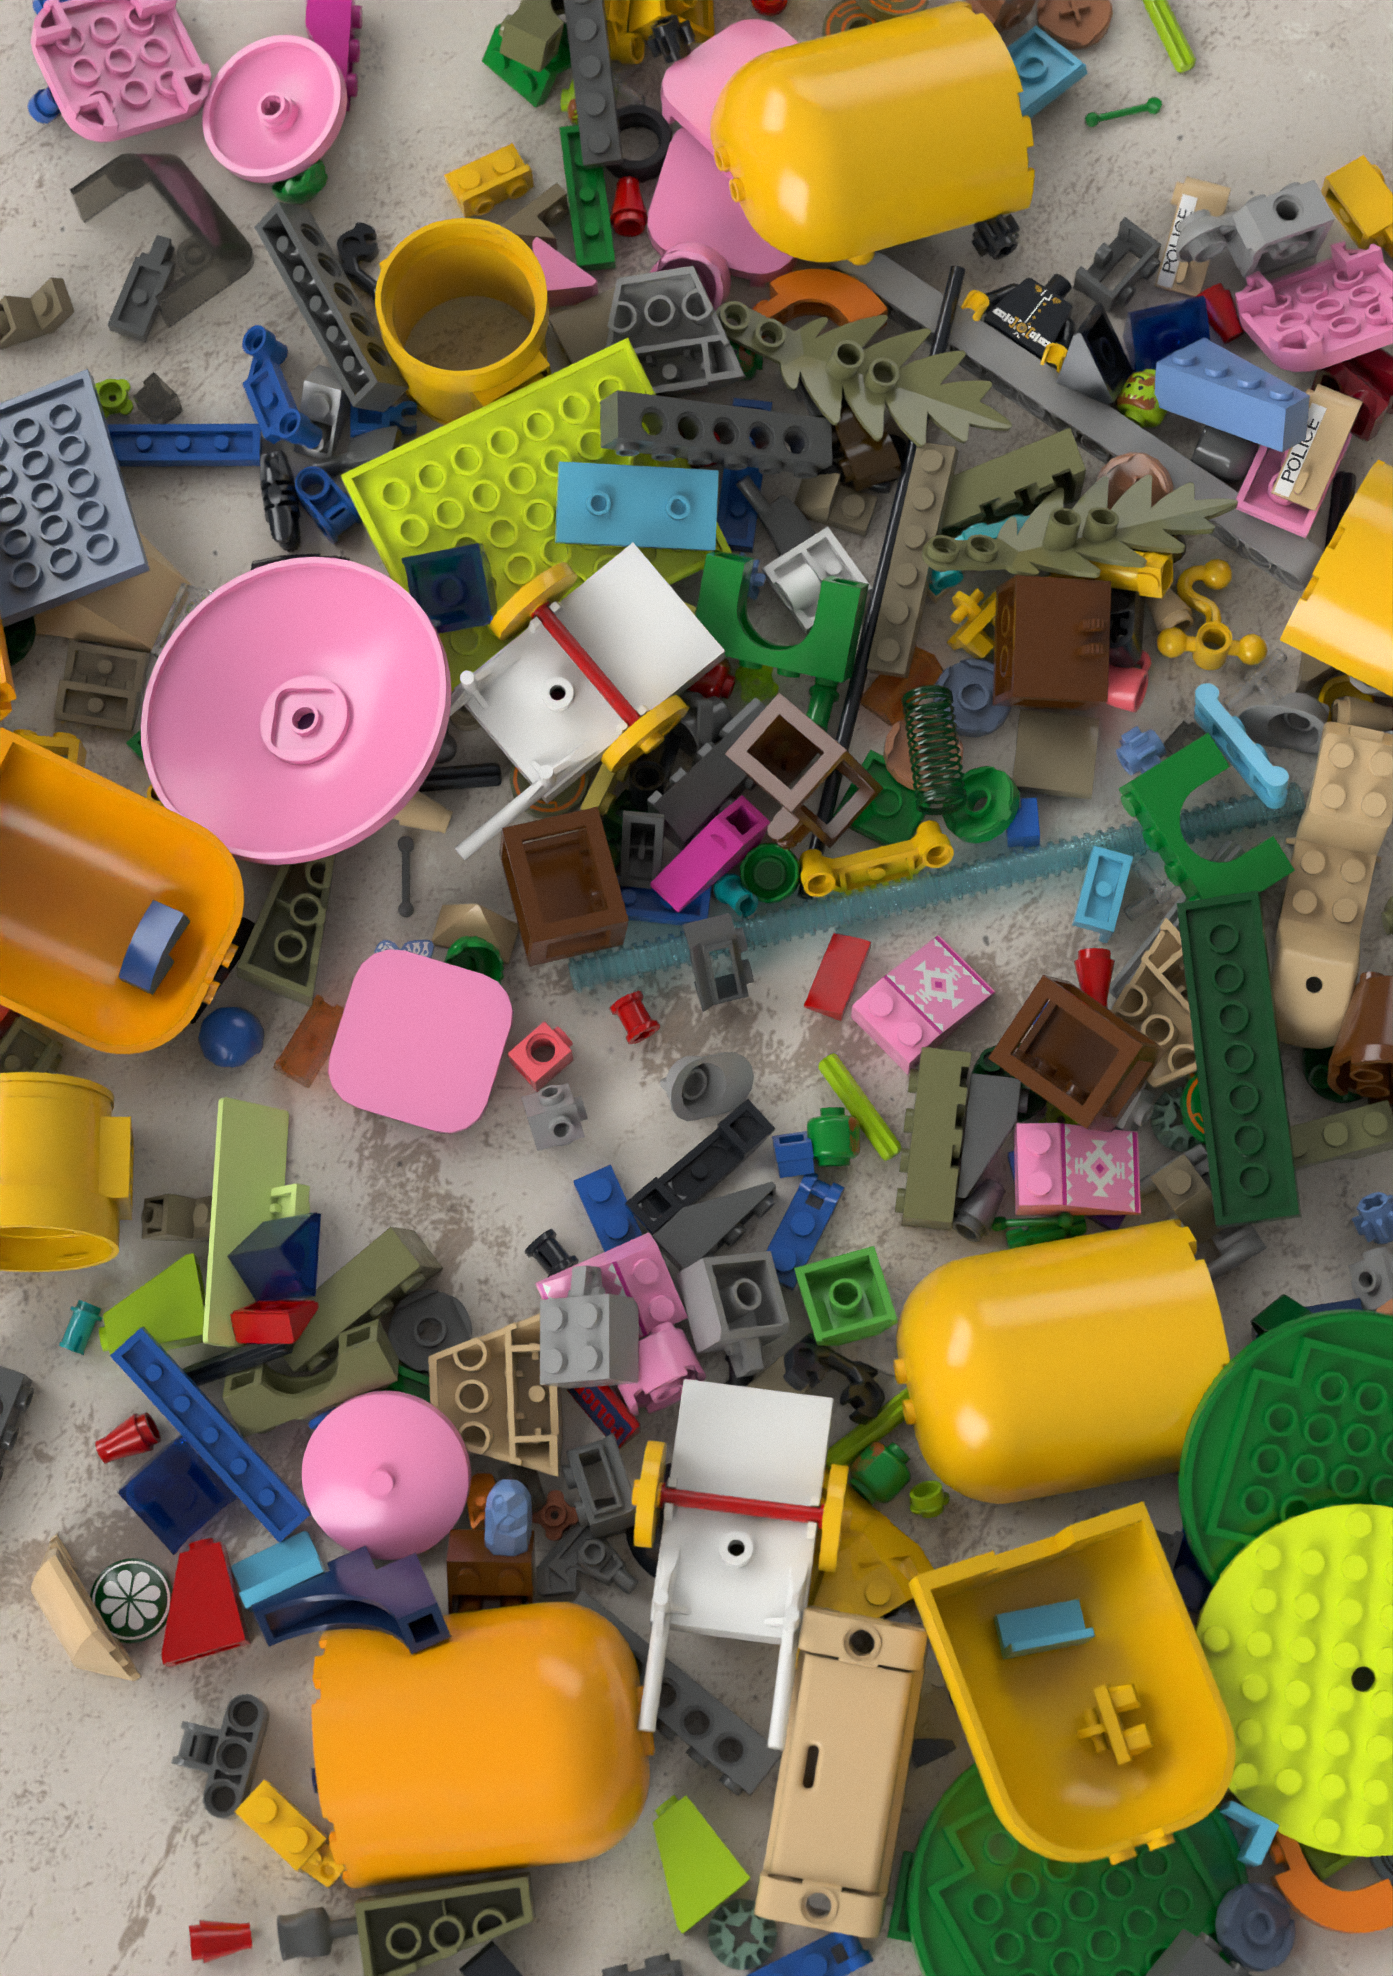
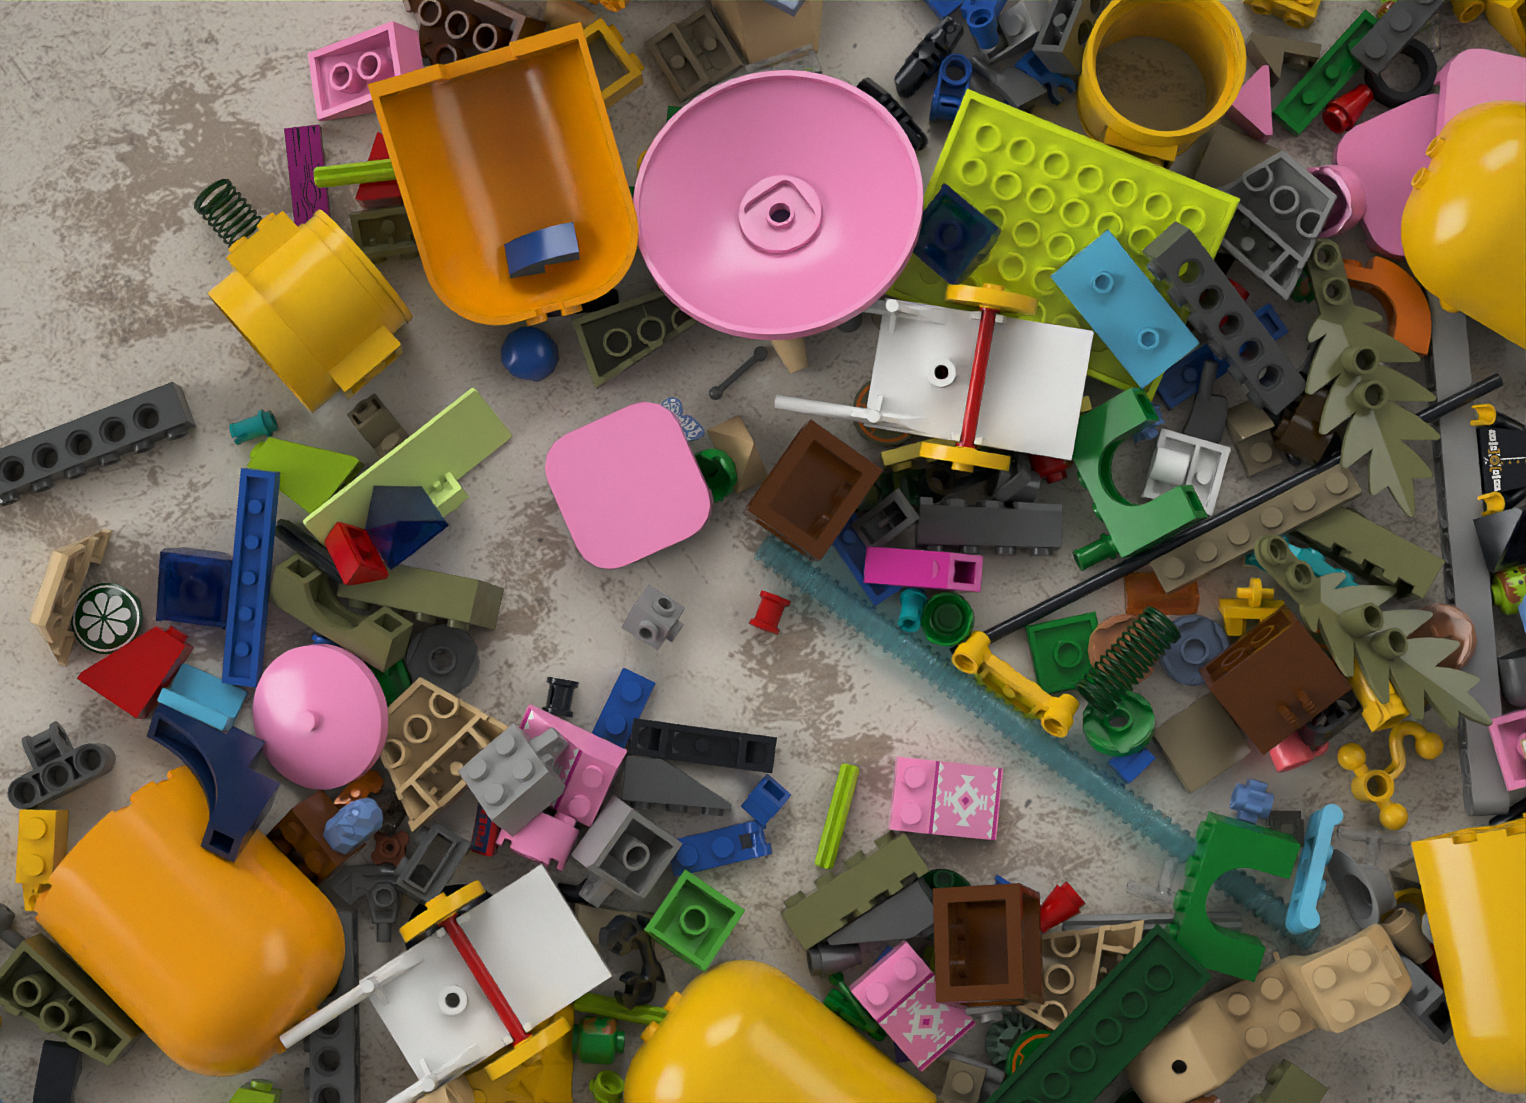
camera: 45 degrees right, 10 degrees up
(131, 1437) = (211, 526): red cone -> none
(310, 1043) = (569, 410): clear orange hinge -> none
(462, 777) = (841, 354): black axle -> none
(537, 1072) = (678, 561): coral brick -> none
(671, 38) = (1498, 31): black gear -> none
(708, 1084) = (762, 702): light grey piece -> none
(713, 935) = (863, 623): dark grey window -> none
(764, 690) = (1067, 496): clear neon green plate -> none
(777, 751) = (1028, 554): reddish brown piece -> none
(834, 1137) = (799, 818): green head -> none
(837, 975) = (915, 724): red slope -> none
(1102, 891) = (1126, 860): medium azure panel -> none
(1170, 611) = (1371, 742): tan cone -> none

